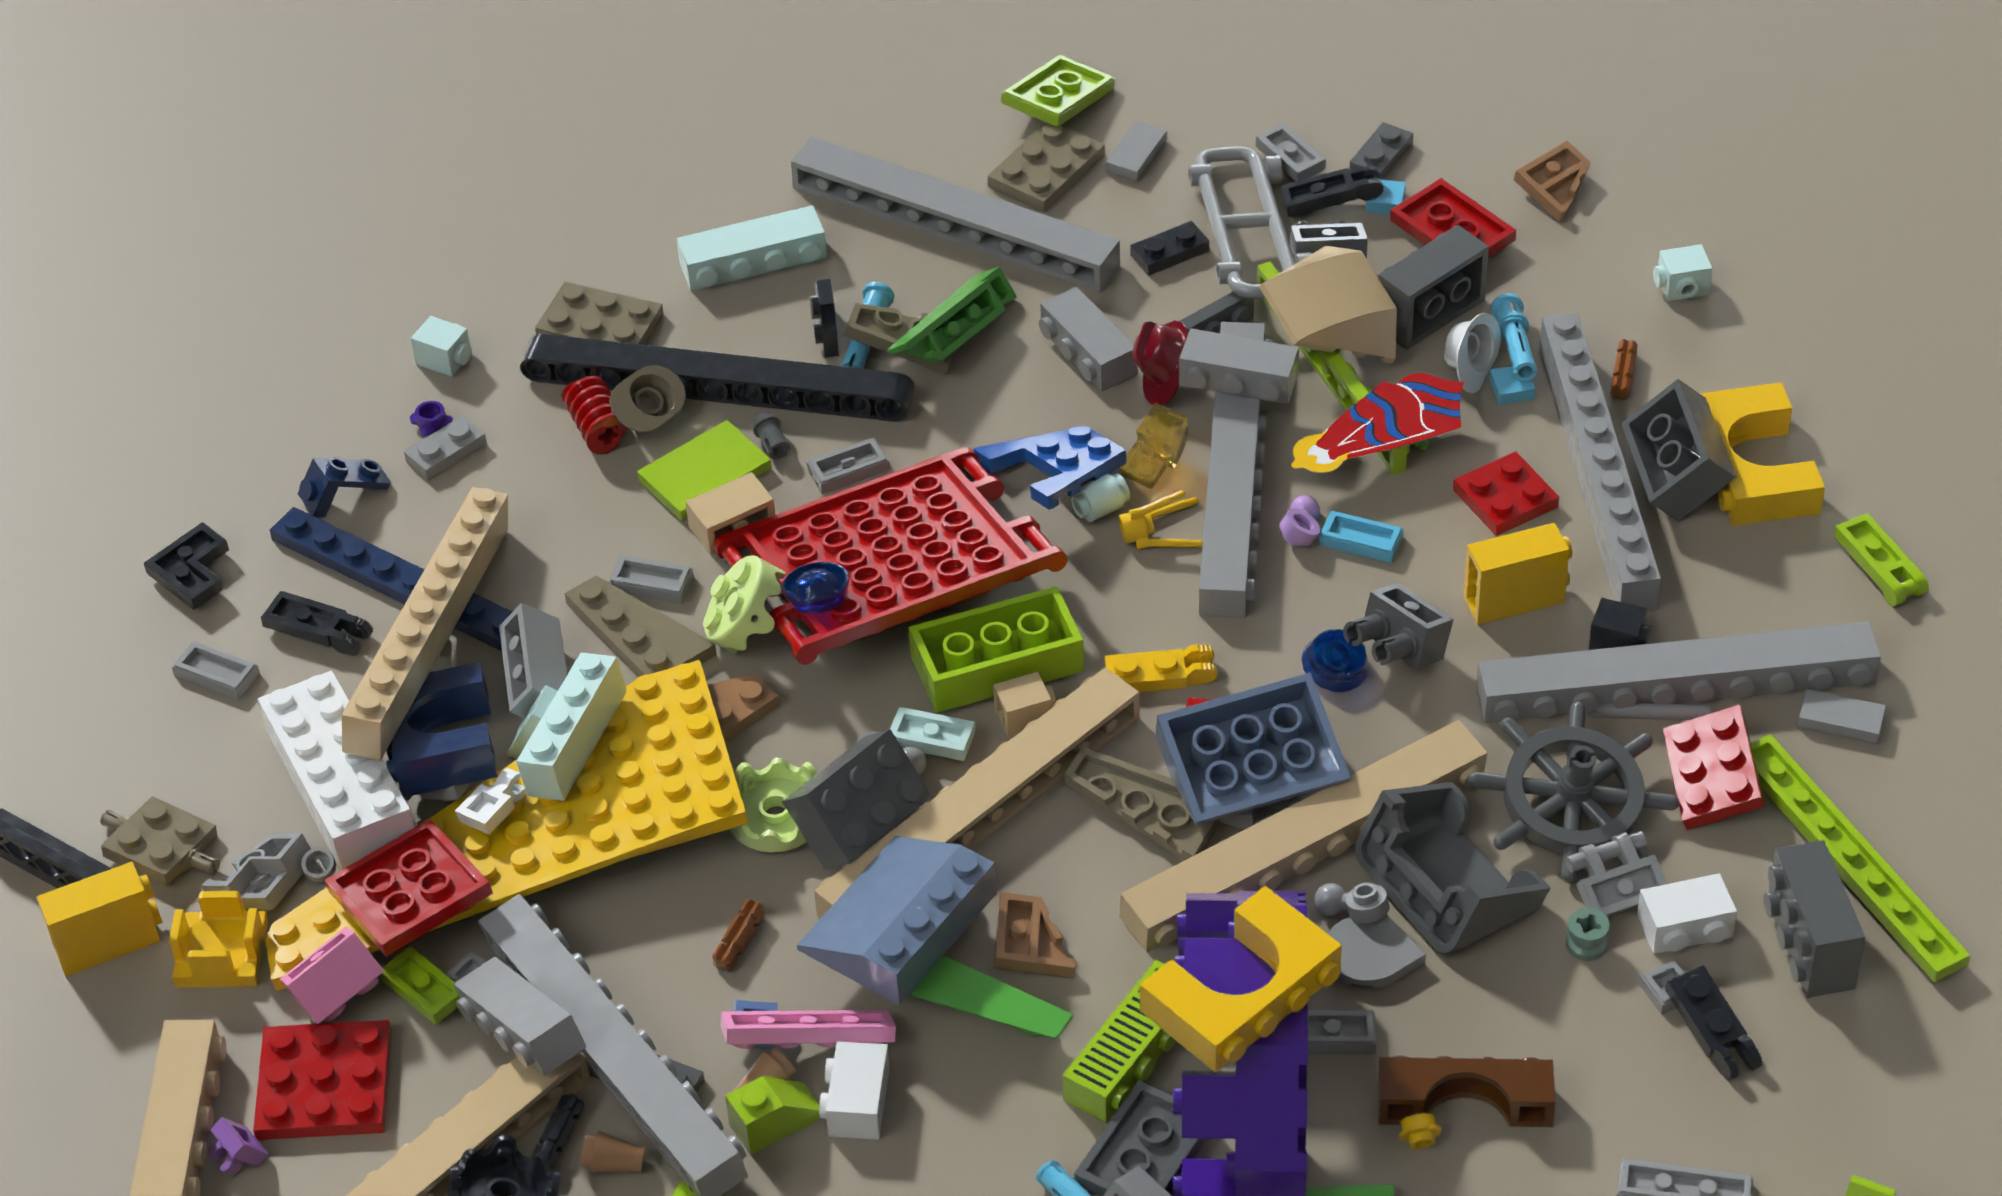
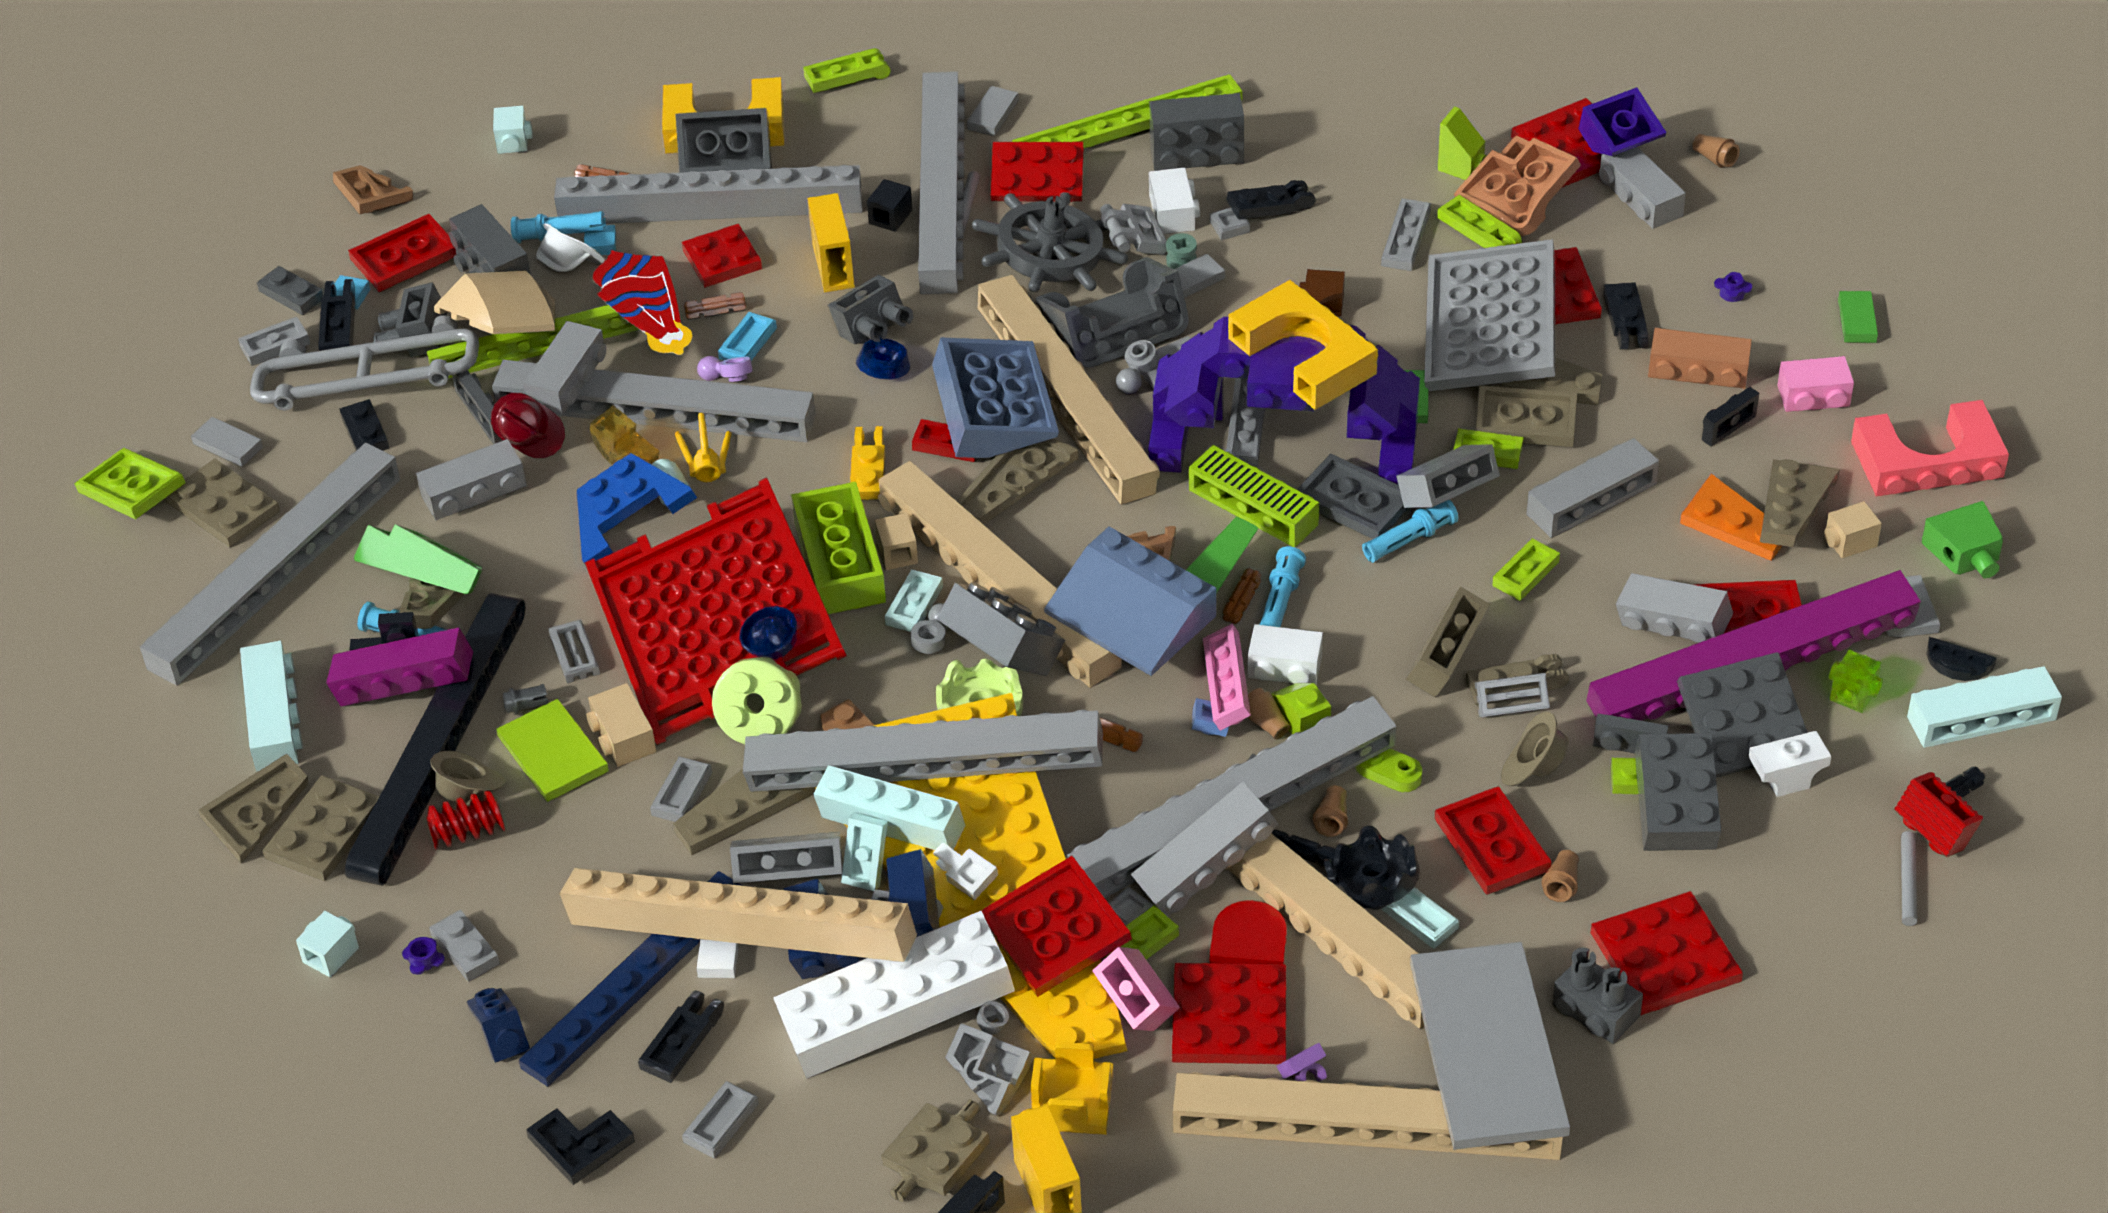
camera: 85 degrees left, 0 degrees up
(427, 1087) = (1249, 934): none -> red tile
(620, 264) = (254, 806): none -> dark tan wing
(651, 746) = (926, 750): none -> light grey brick
(786, 323) = (400, 667): none -> magenta brick
(965, 1045) = (1241, 596): none -> dark orange axle
(988, 1083) = (1283, 581): none -> medium azure pin
(1412, 498) = (715, 305): none -> dark orange axle
(1546, 951) = (1199, 274): none -> light grey tile

